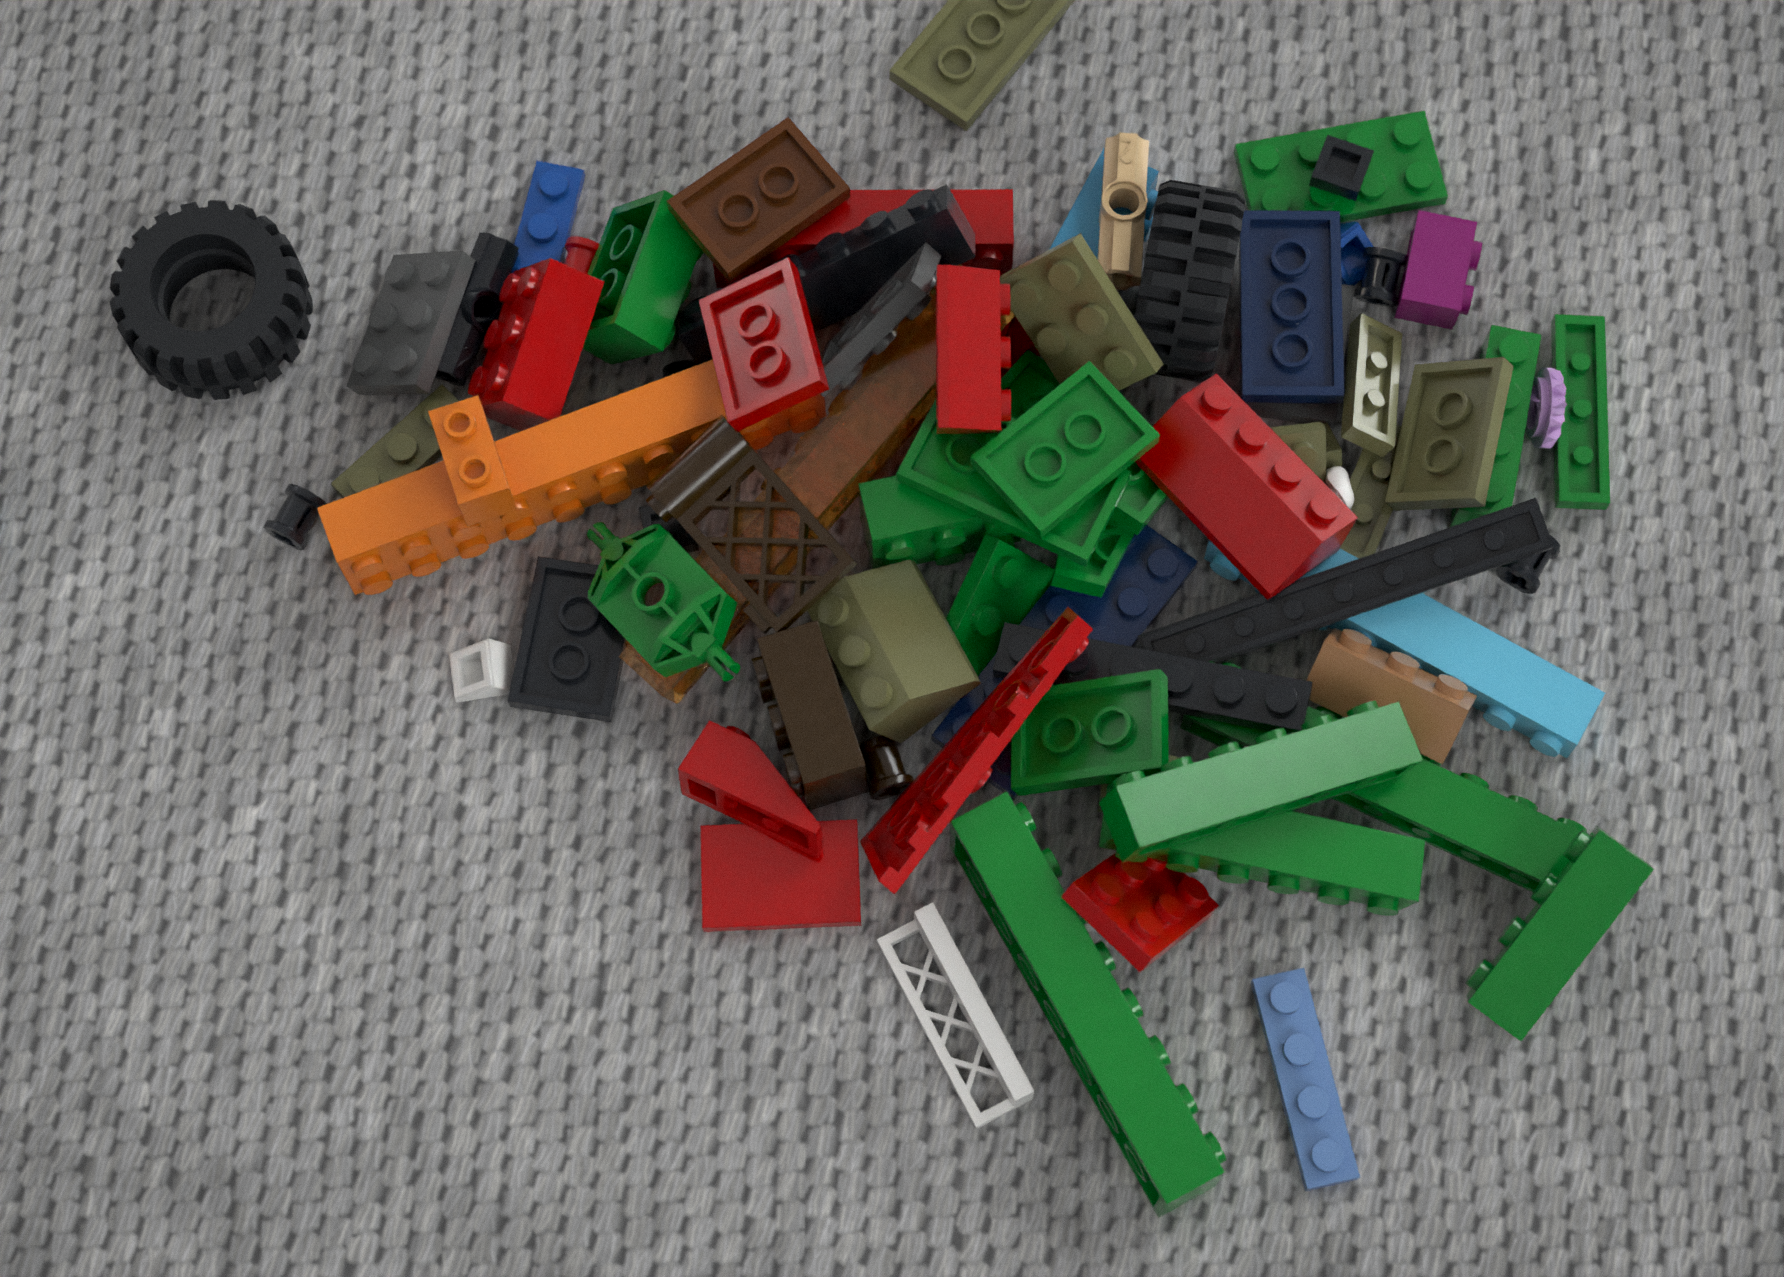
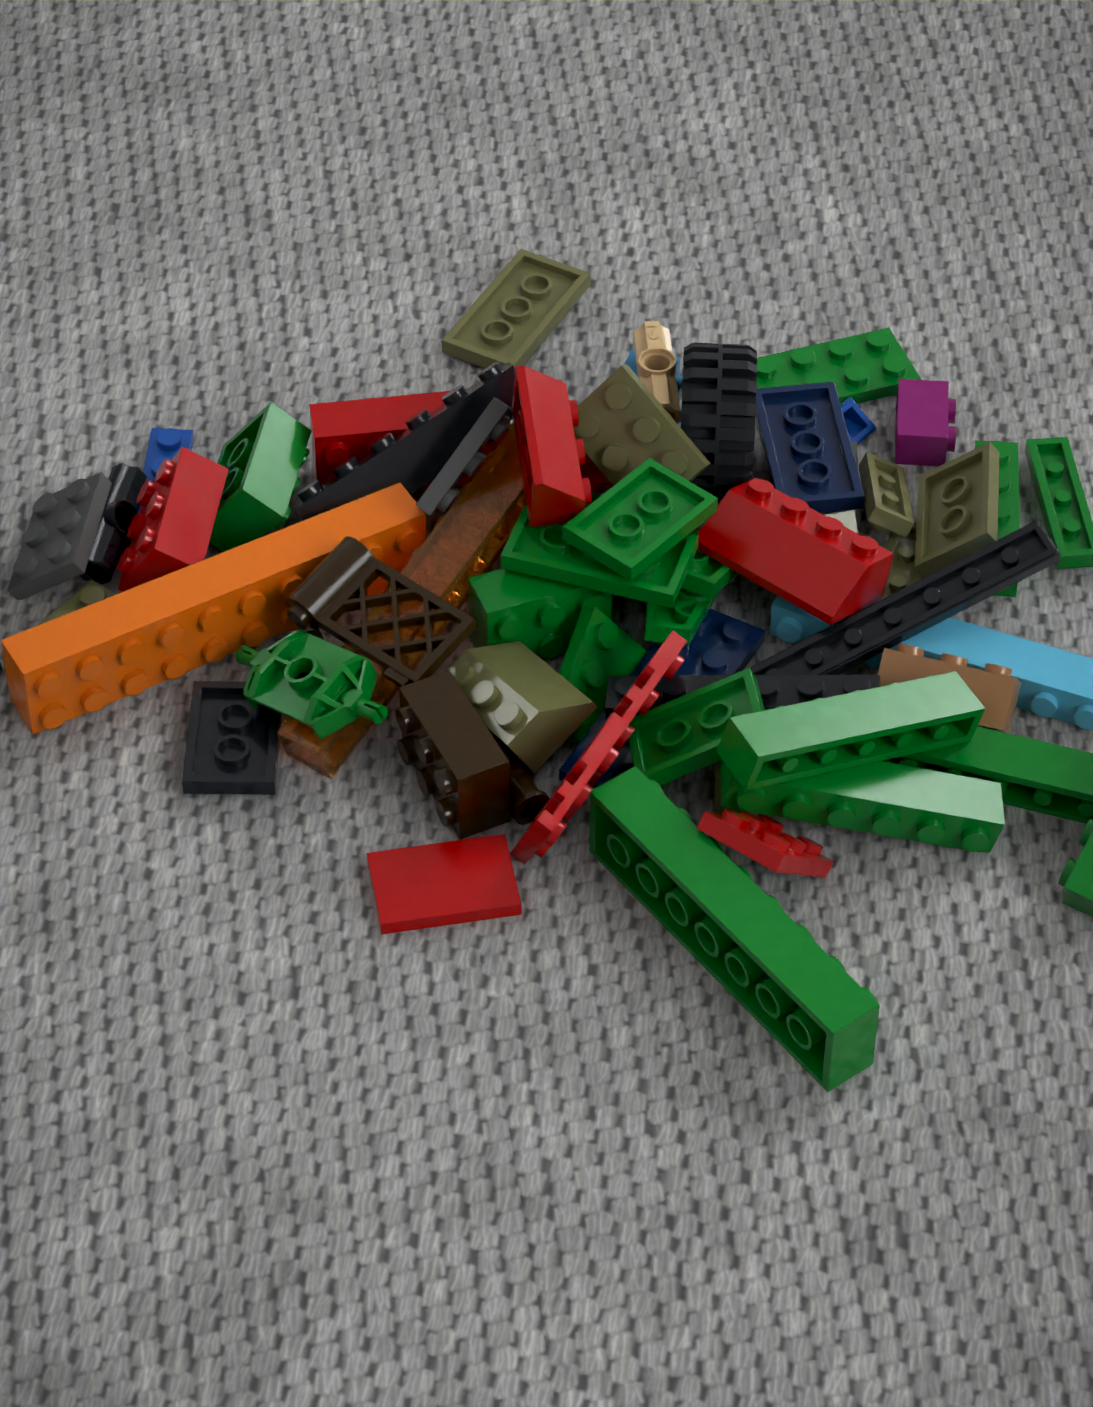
camera: 10 degrees left, 25 degrees down
(472, 460) = (135, 583): orange brick -> none
(481, 670) = (153, 771): white slope -> none
(740, 781) = (408, 815): red slope -> none
(758, 199) = (351, 398): reddish brown plate -> none
(763, 344) = (373, 483): red plate -> none
(972, 1005) = (632, 949): white fence -> none
(1305, 1079) = (935, 975): medium blue plate -> none
(1341, 168) = (829, 358): black plate -> none
(1380, 276) = (877, 429): black bush -> none
(1525, 572) = (1043, 600): black bush -> none
(1546, 408) = (1034, 493): lavender gear -> none

